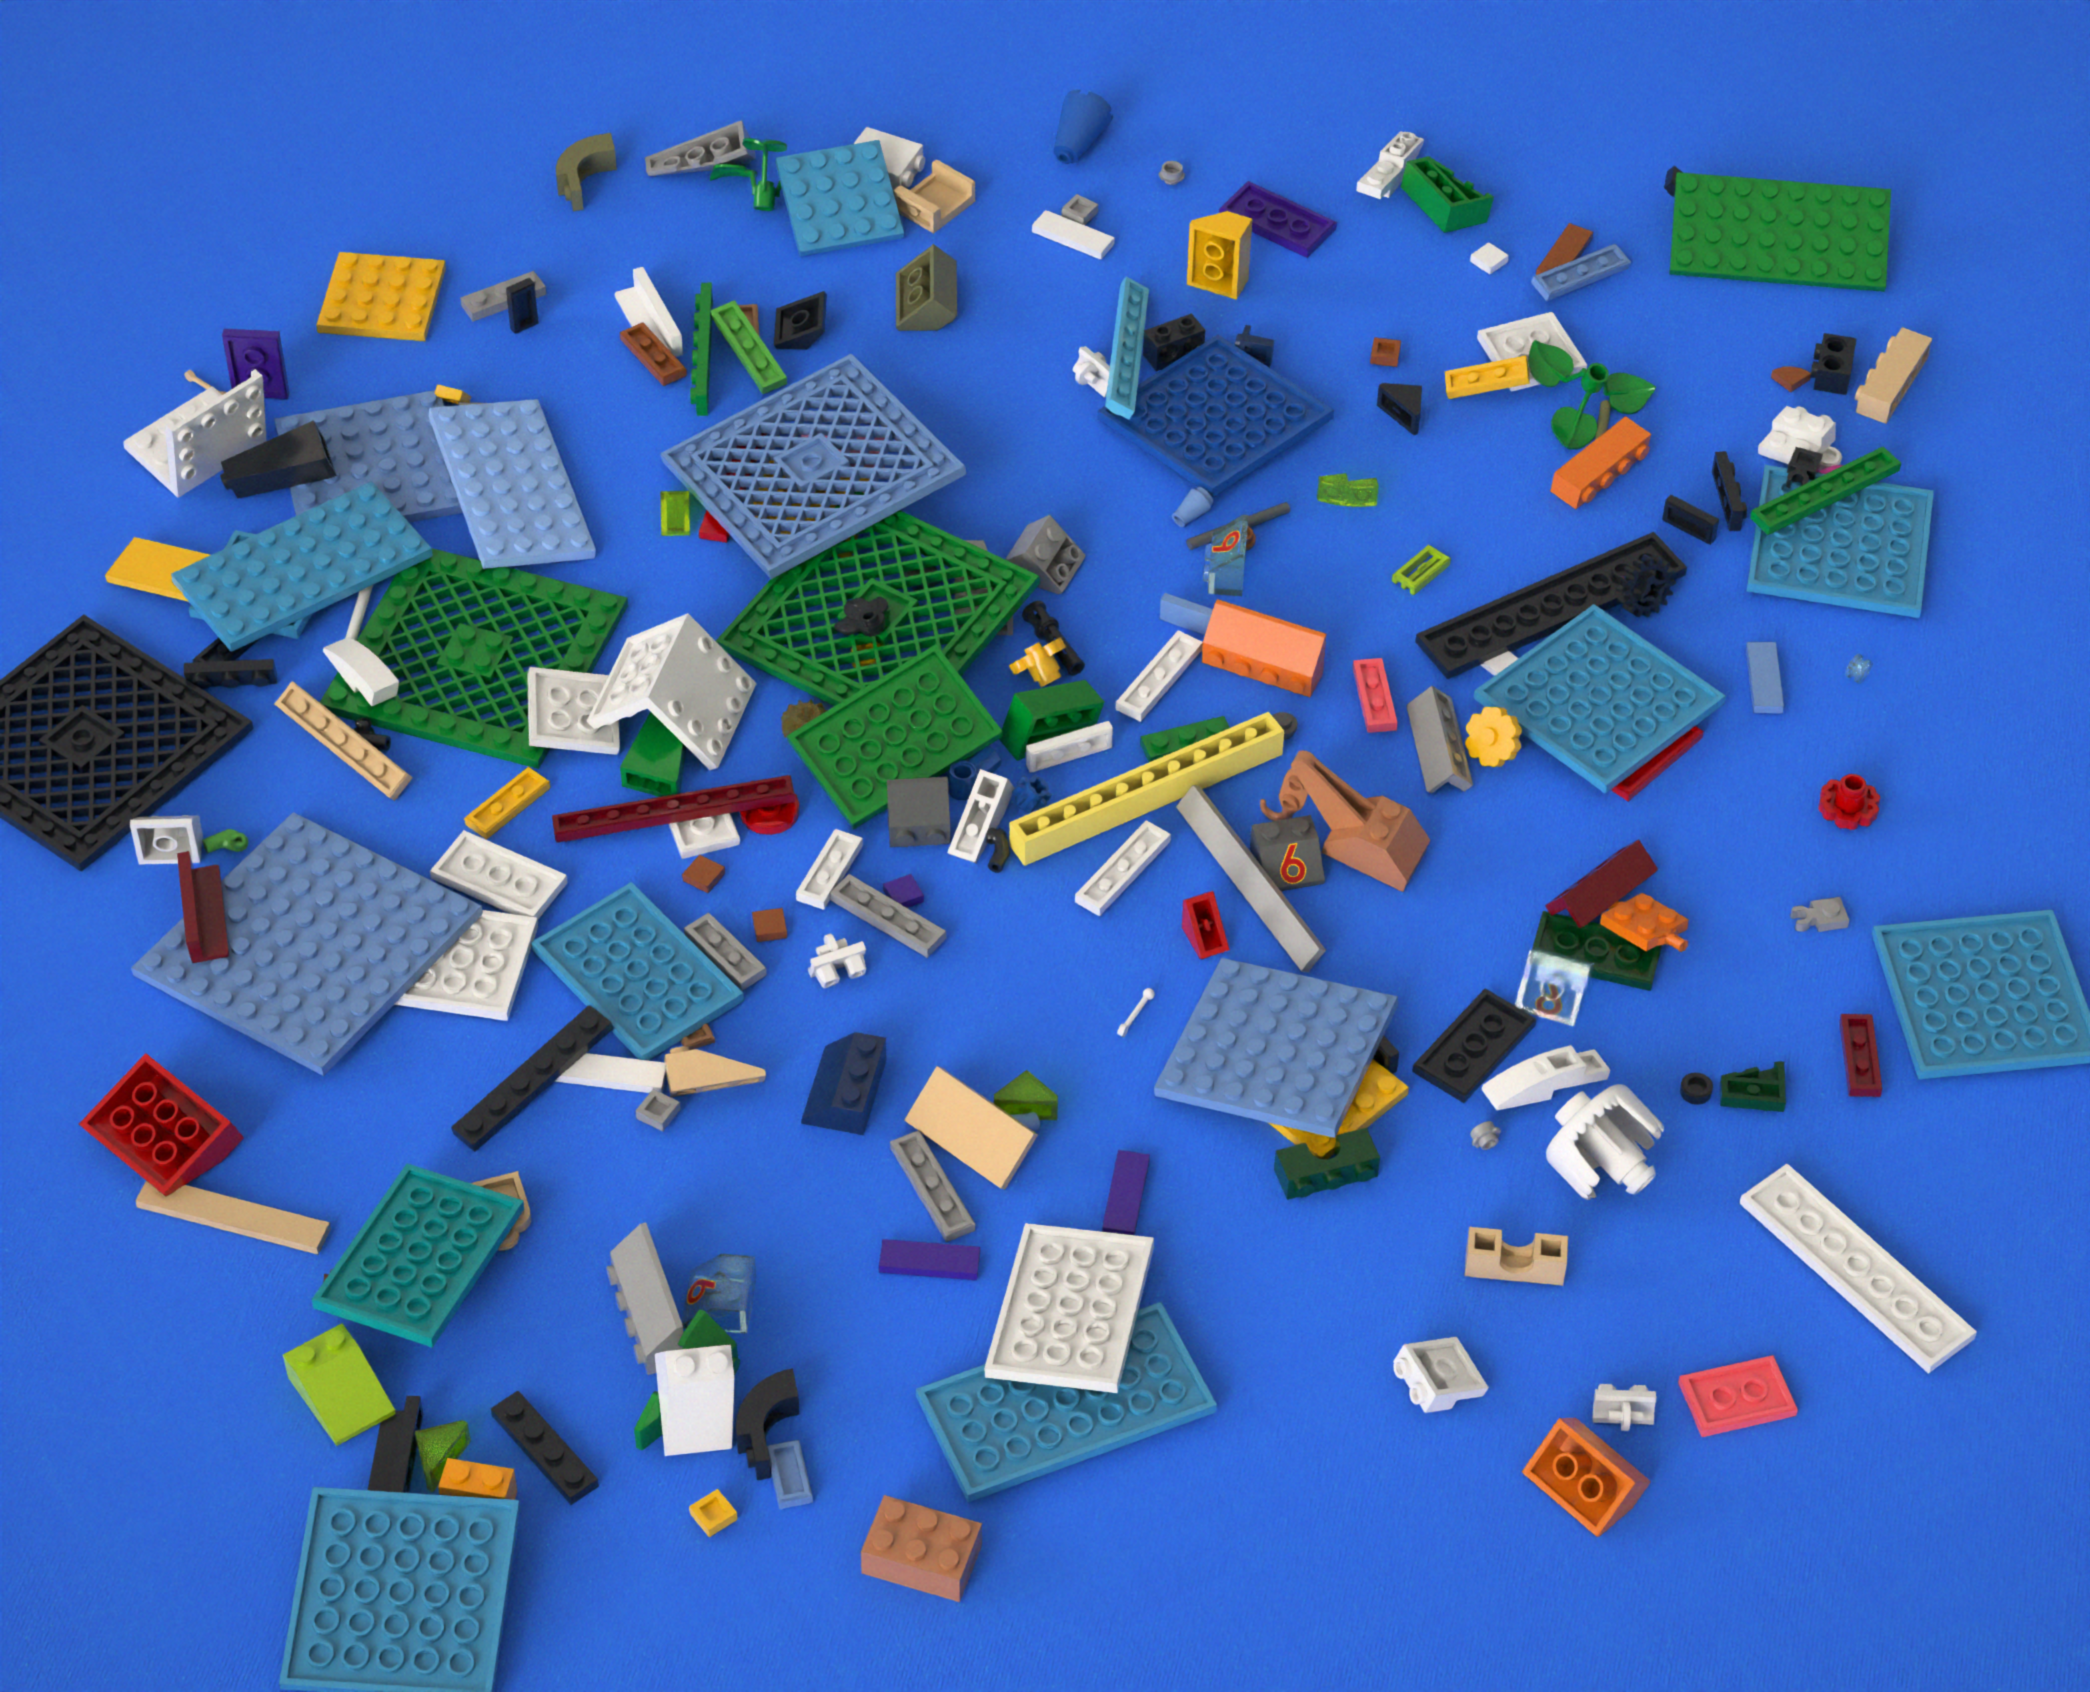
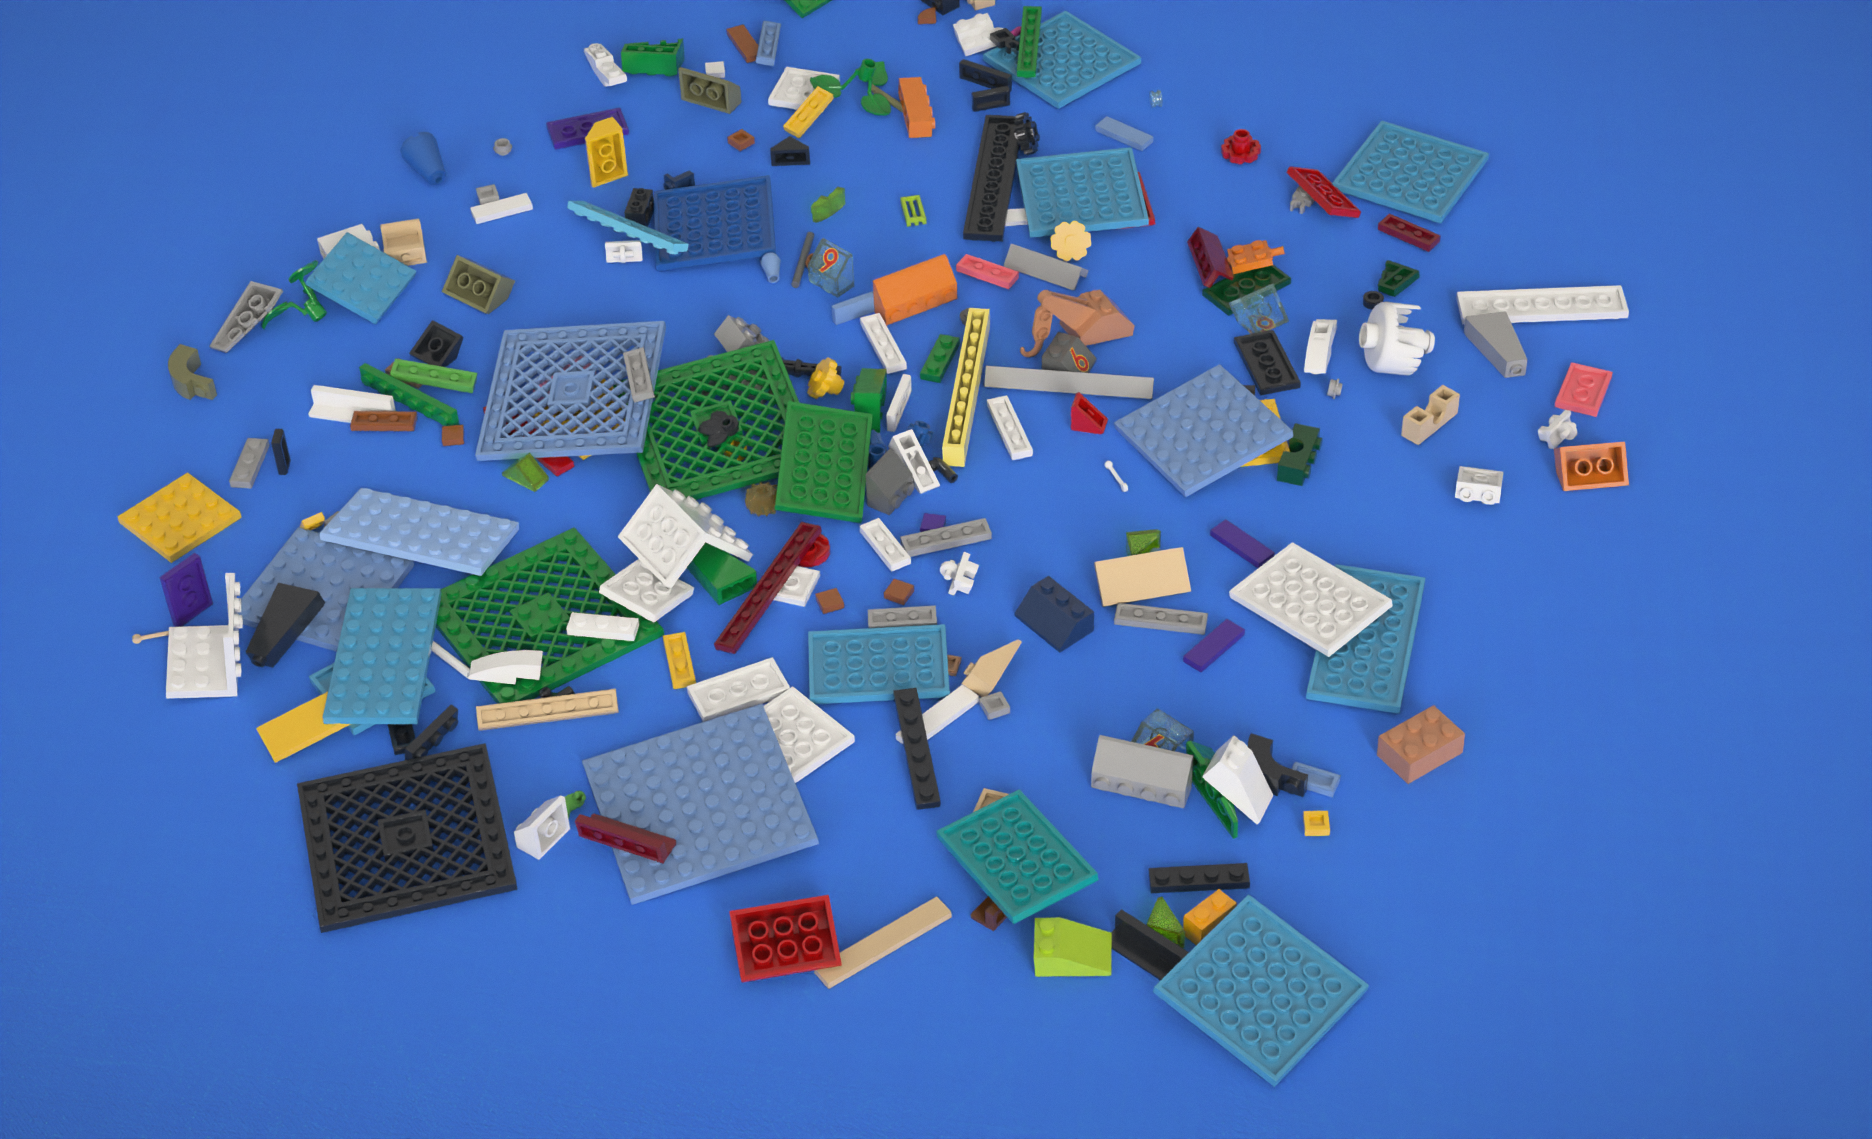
camera: 50 degrees left, 5 degrees down
(490, 709) = (603, 626): none -> white plate
(683, 419) = (453, 435): none -> dark orange tile
(860, 498) = (638, 374): none -> light grey plate
(1437, 273) = (709, 91): none -> olive slope
(1735, 1255) = (1497, 342): none -> light grey slope
(1844, 927) = (1323, 192): none -> red tile

